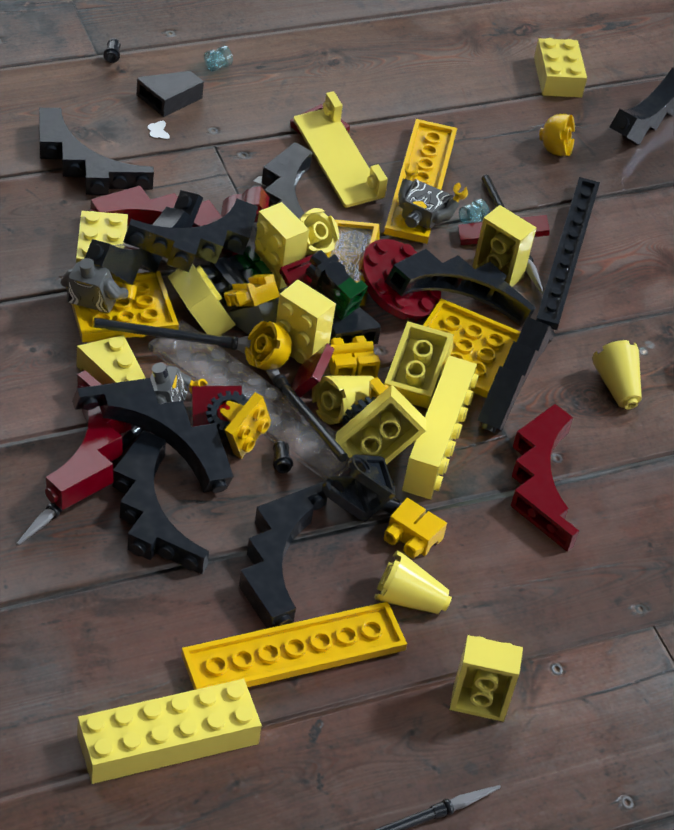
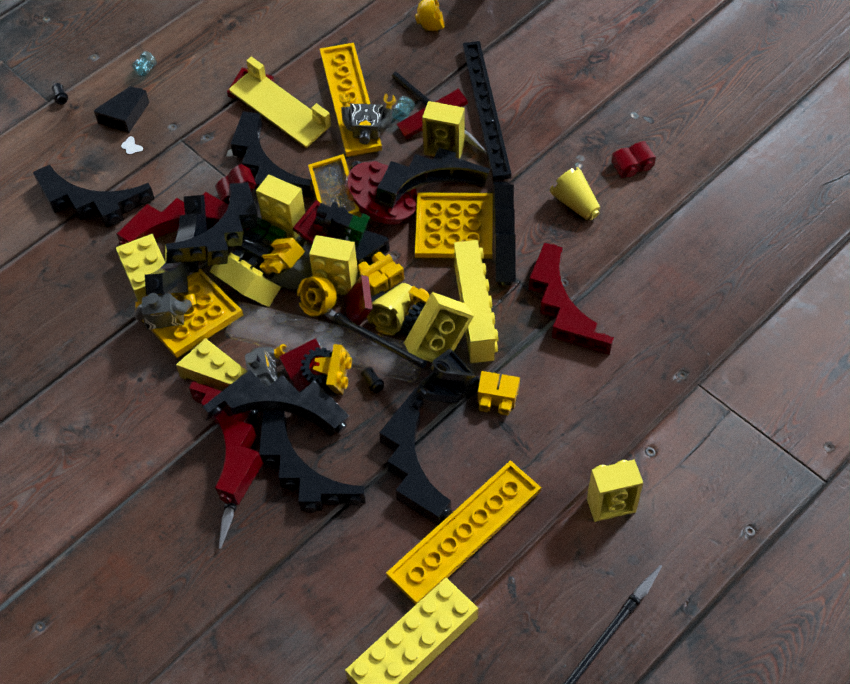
camera: 15 degrees left, 10 degrees up
(221, 341) = (282, 305): black piece -> none
(322, 231) = (307, 180): light yellow cone -> none
(412, 587) = (520, 441): light yellow cone -> none
(419, 363) = (433, 257): light yellow brick -> none

